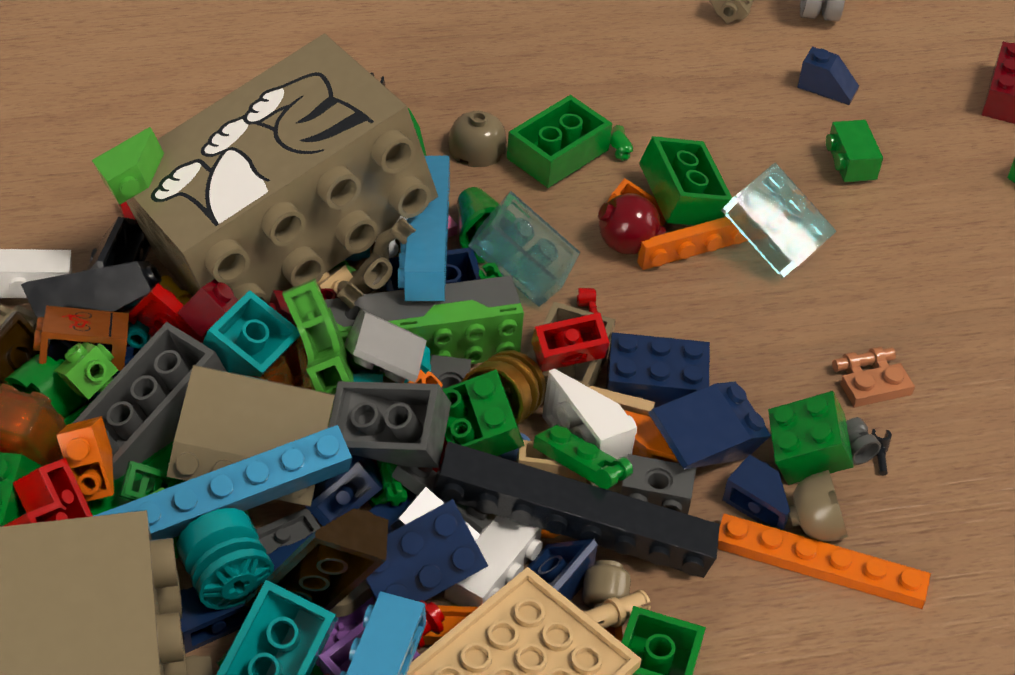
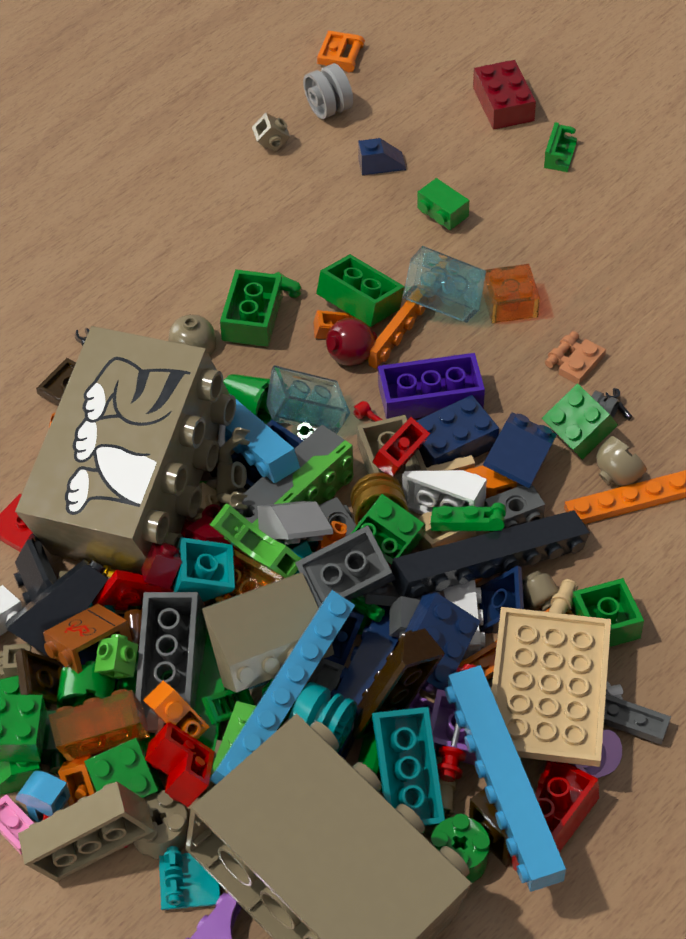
camera: 30 degrees left, 5 degrees up
(130, 165) = (37, 501): bright green slope -> none
(671, 306) = (429, 385): none -> dark purple brick
(758, 493) = (576, 476): dark blue slope -> none
(852, 272) = (511, 293): none -> clear orange brick

